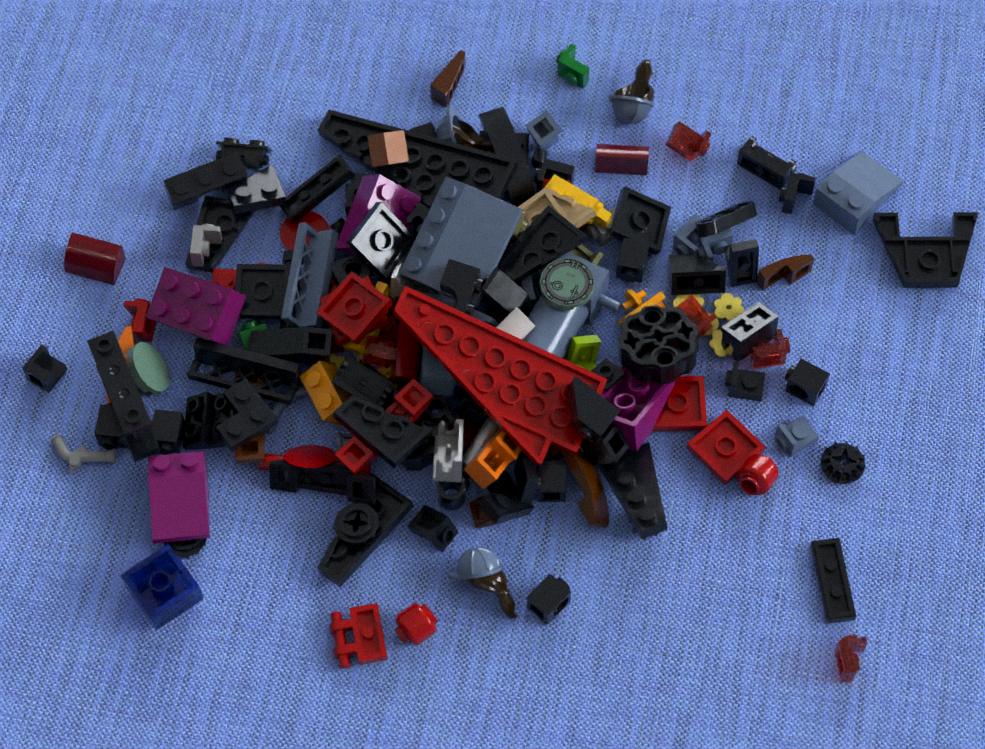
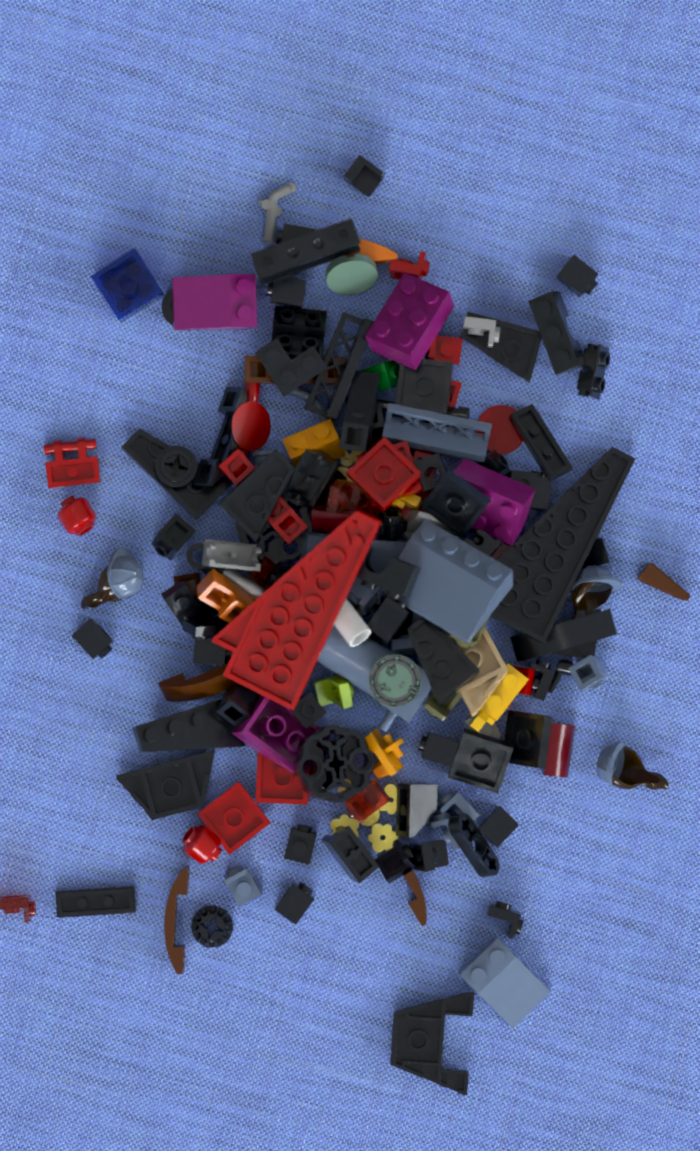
camera: 90 degrees right, 25 degrees up
(93, 258) = (480, 221): dark red brick -> none
(148, 170) = (578, 276): none -> black brick
(257, 192) = (541, 385): black wing -> none
(388, 148) = (571, 515): nougat panel -> none
(570, 69) = (662, 708): green bracket -> none
(589, 410) = (254, 690): black slope -> none
(611, 173) = (530, 738): none -> black plate
(688, 142) = (570, 818): clear red bracket -> none
(699, 511) = (170, 785): none -> black wing
(703, 201) = (498, 826): none -> black panel
(750, 288) = (396, 861): none -> black bracket
(765, 164) = (542, 894): black hinge -> none
(771, 354) = (327, 868): clear red bracket -> none
(803, 493) = (175, 952): none -> reddish brown slope

